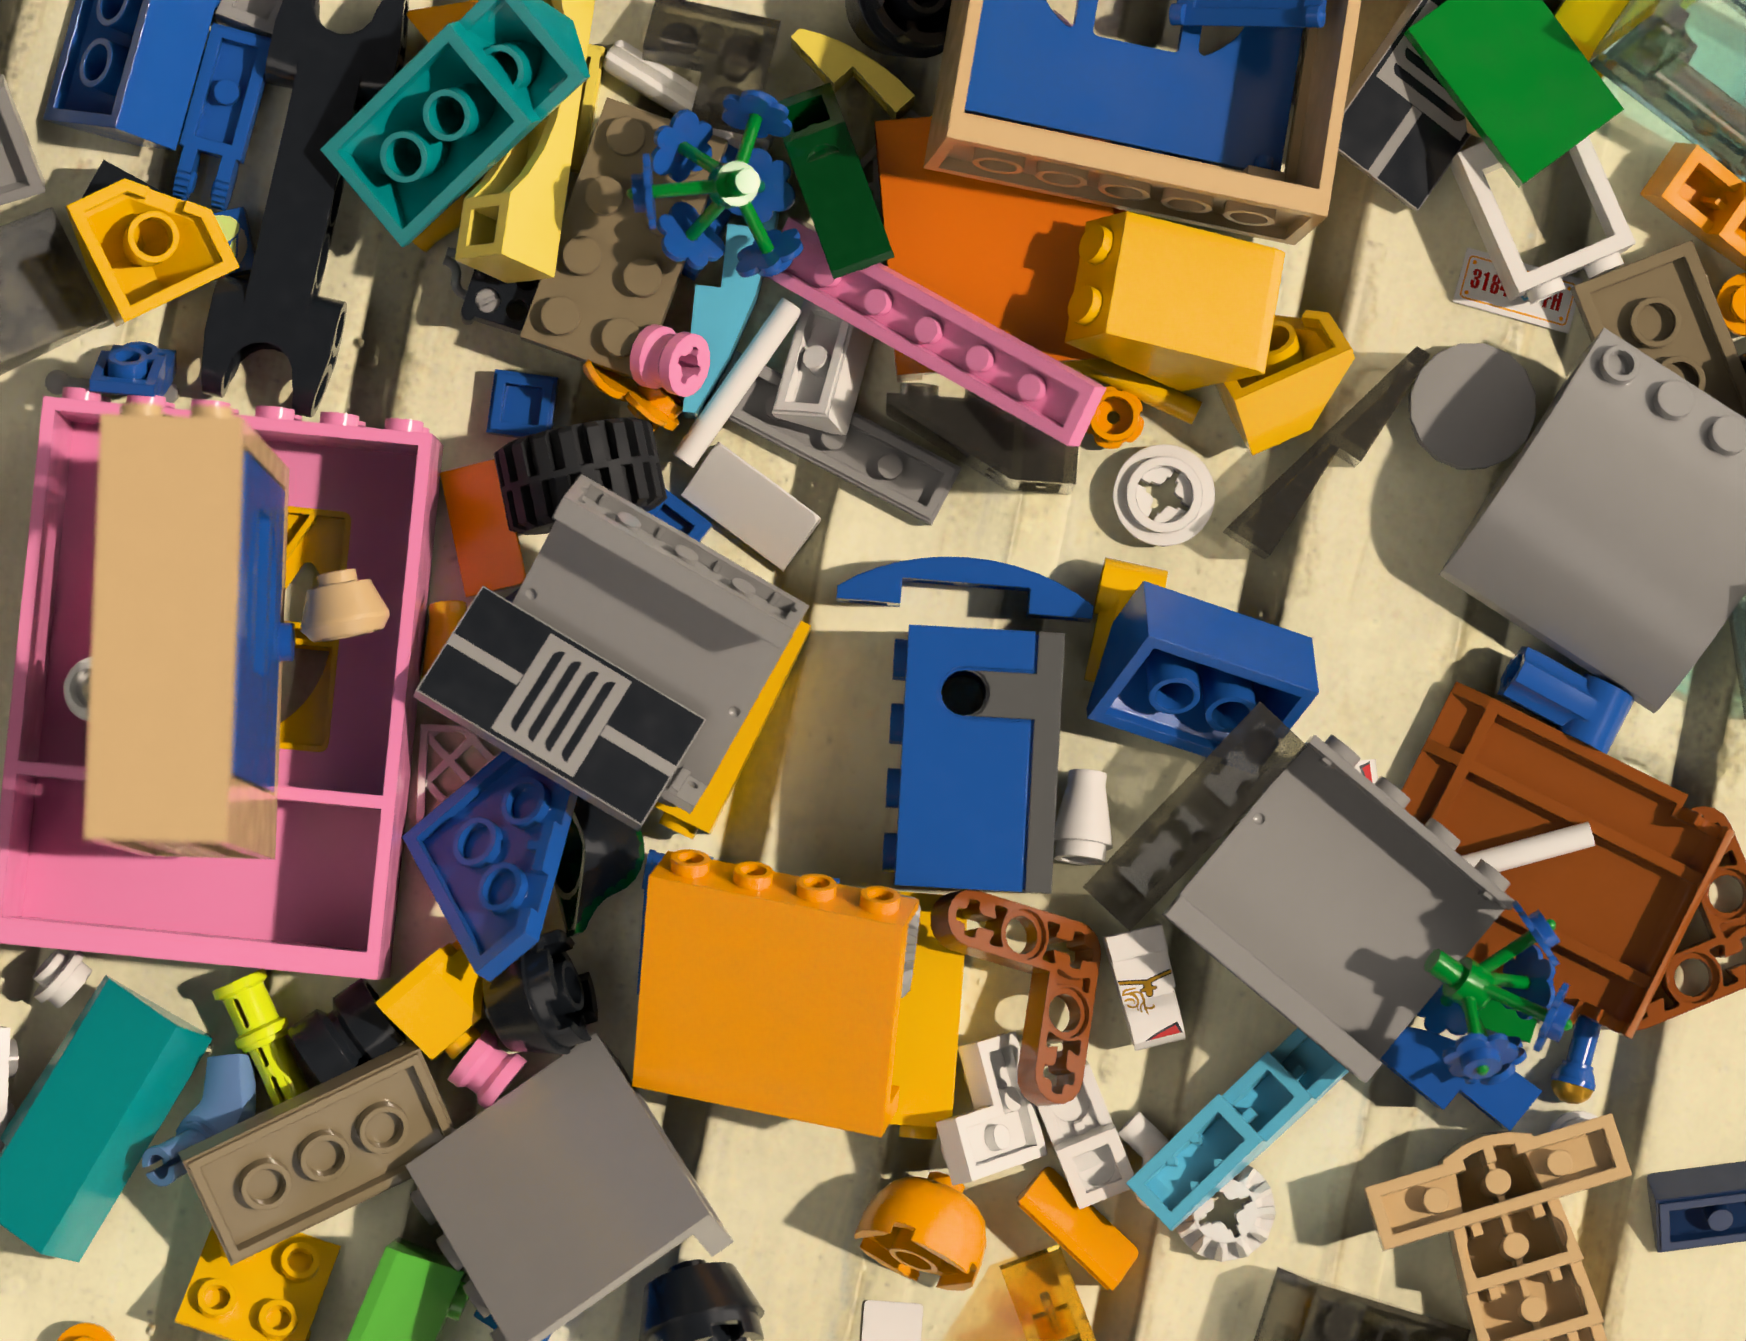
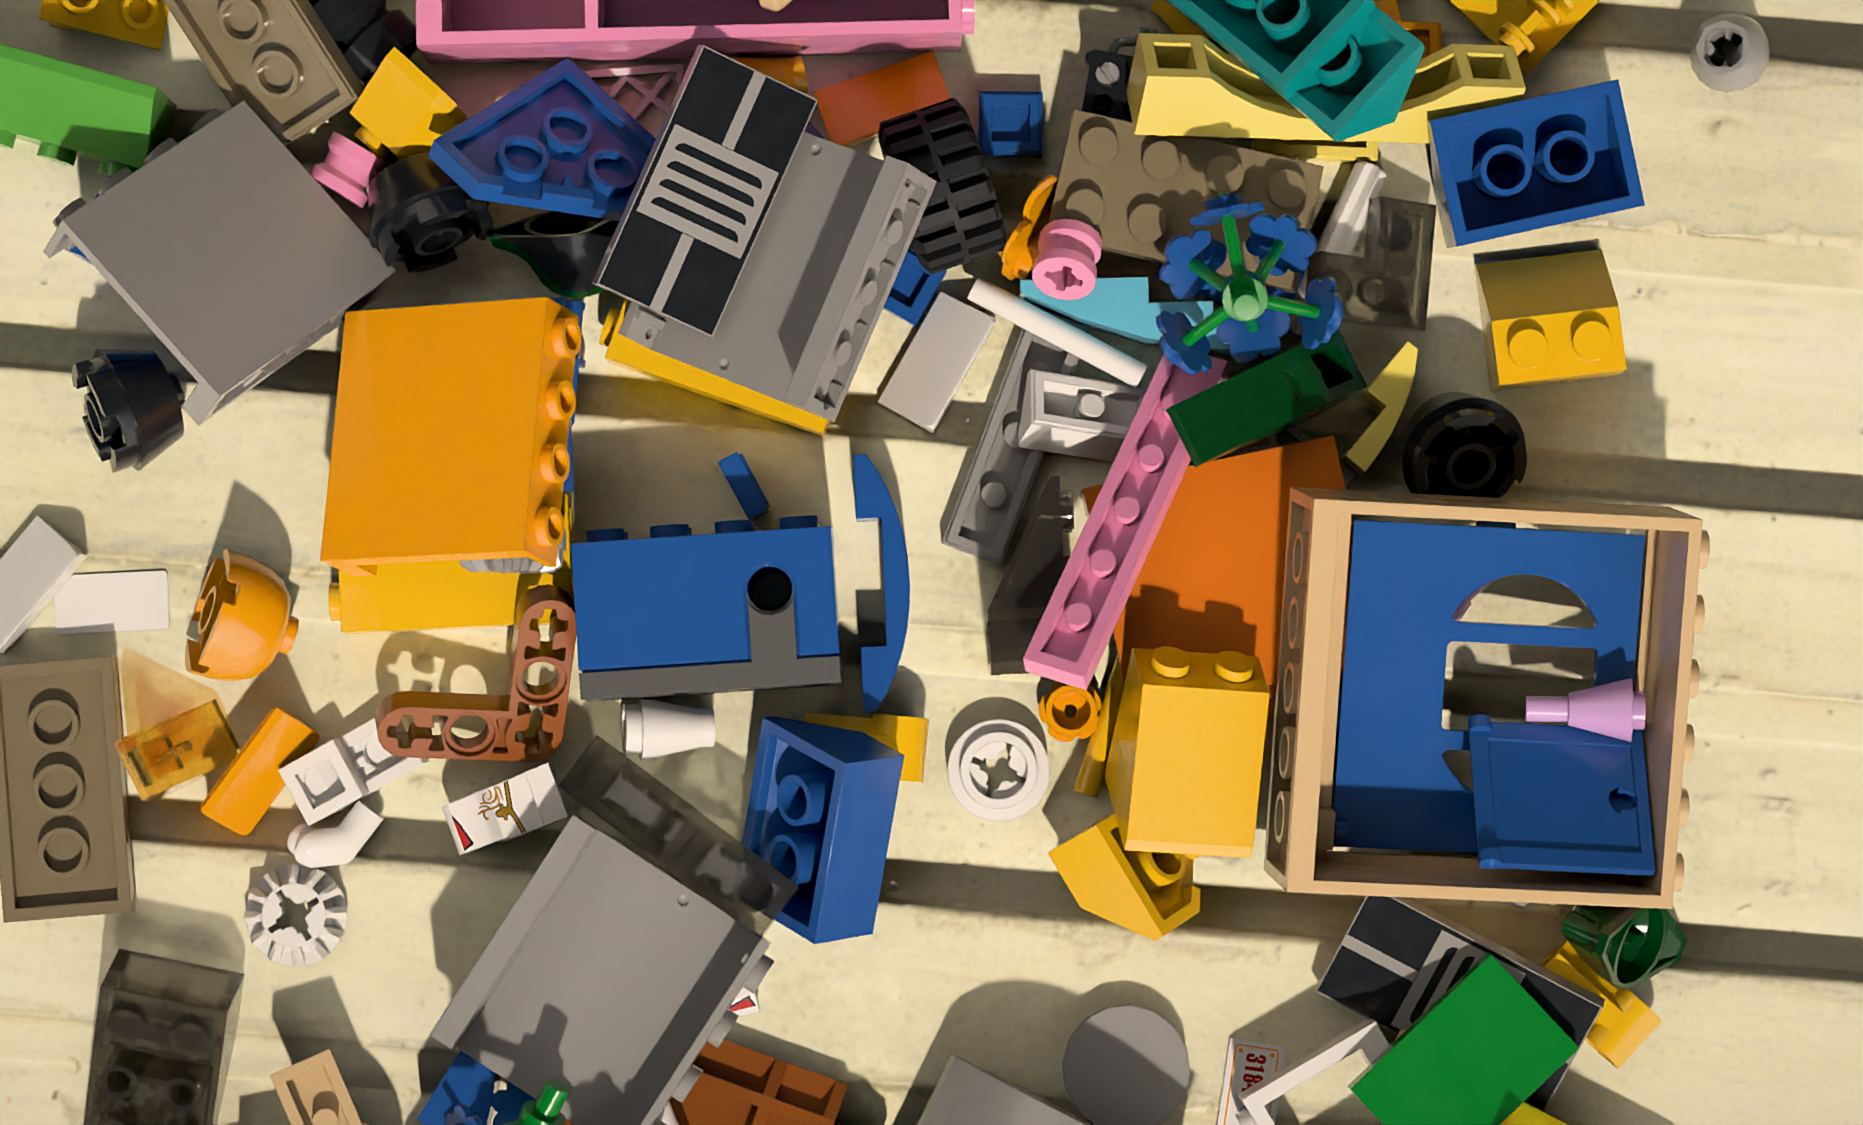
camera: 85 degrees right, 0 degrees up
(852, 711) = (744, 486): none -> blue tile
(1003, 1124) = (353, 683): white plate -> none
(1236, 1128) = (372, 912): medium azure slope -> none
(1350, 439) = (1078, 949): clear smoke slope -> none

